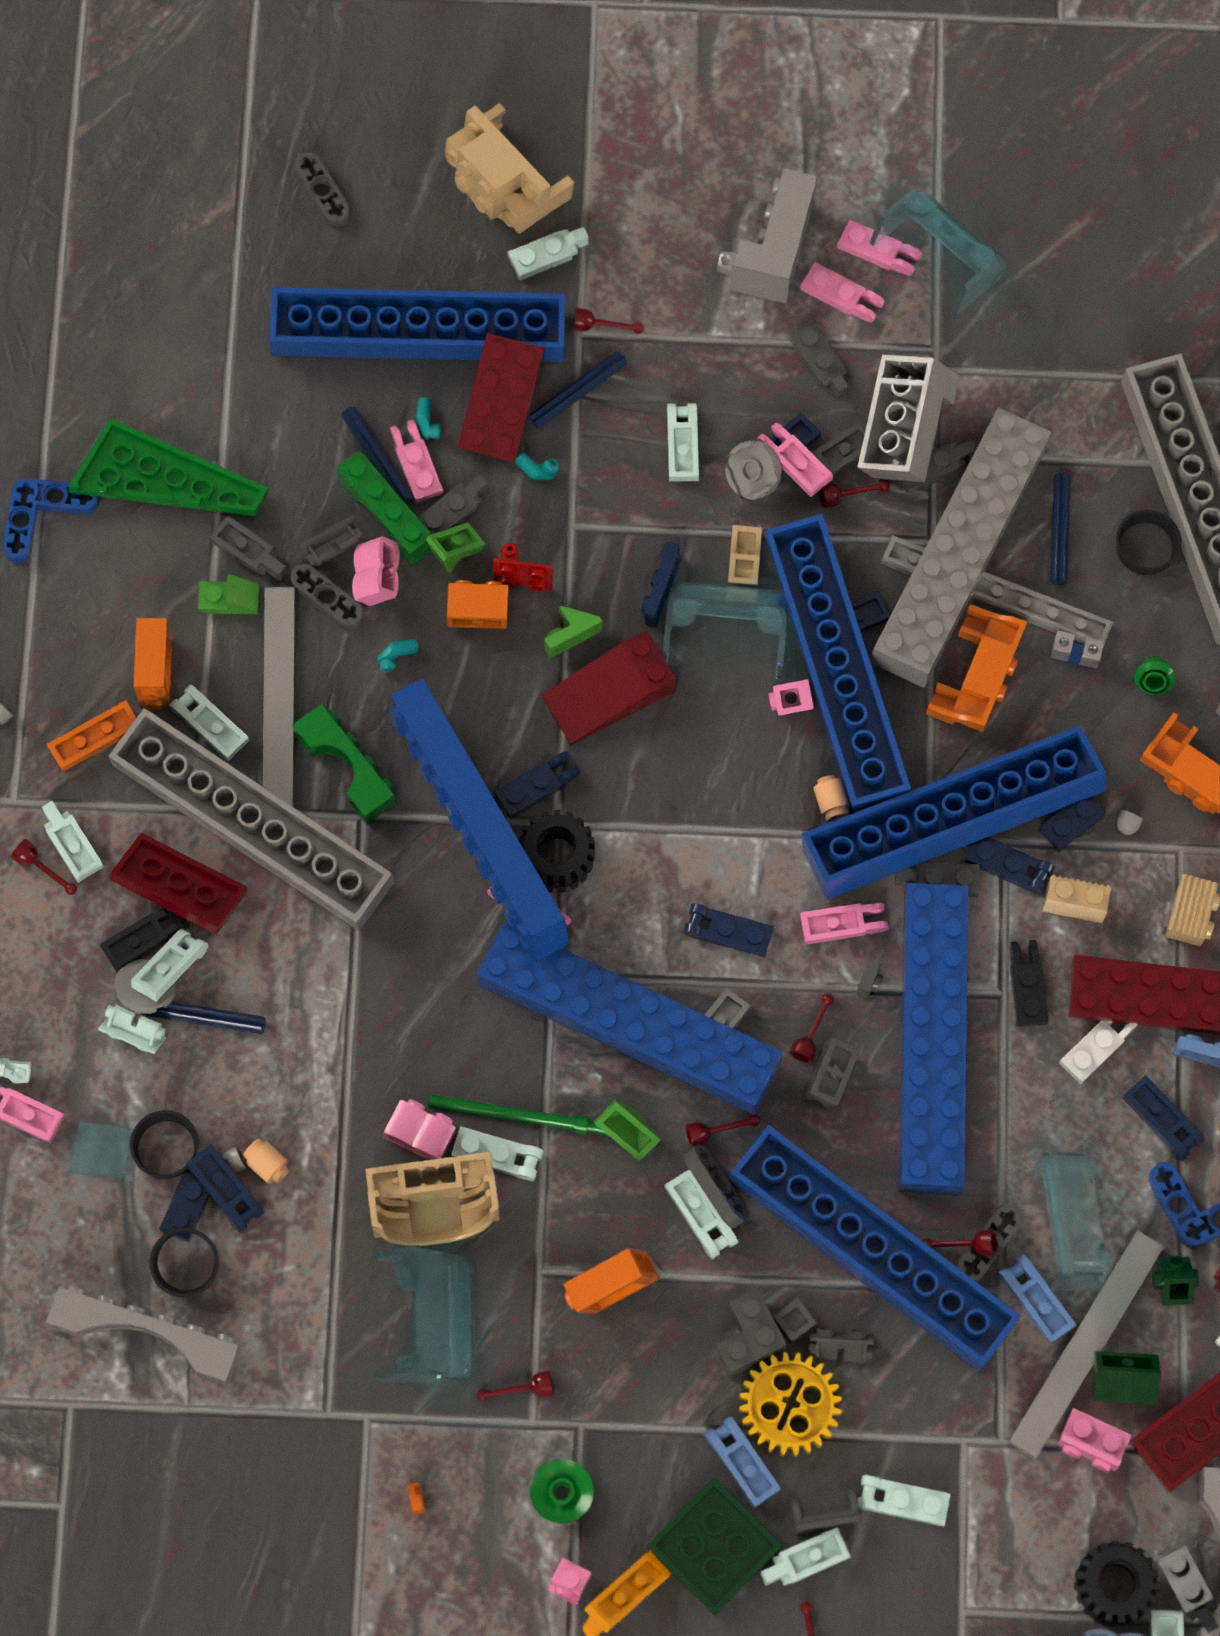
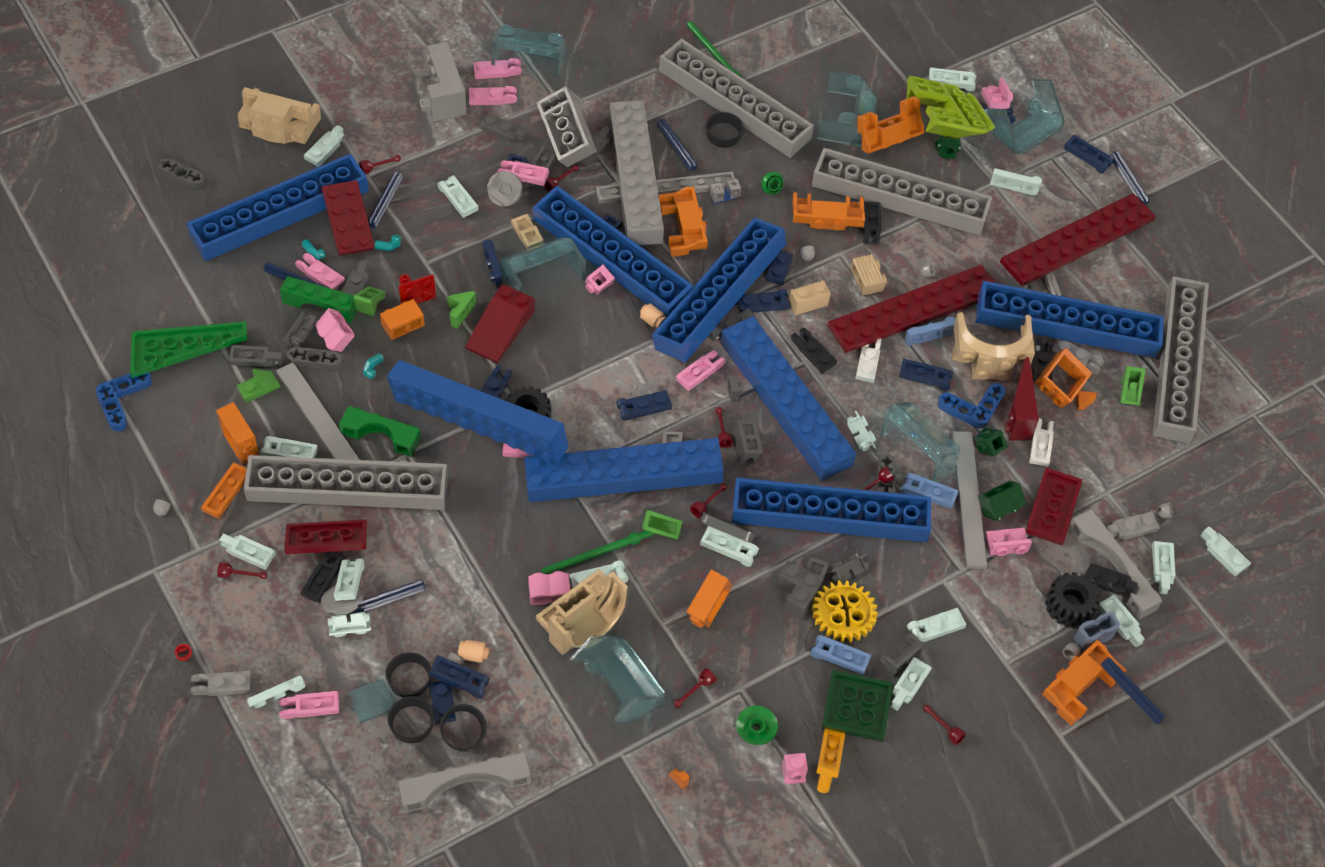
camera: 35 degrees left, 15 degrees down
(113, 1185) = (410, 702): none -> black tyre
(1006, 1164) = (858, 425): none -> light aqua hinge

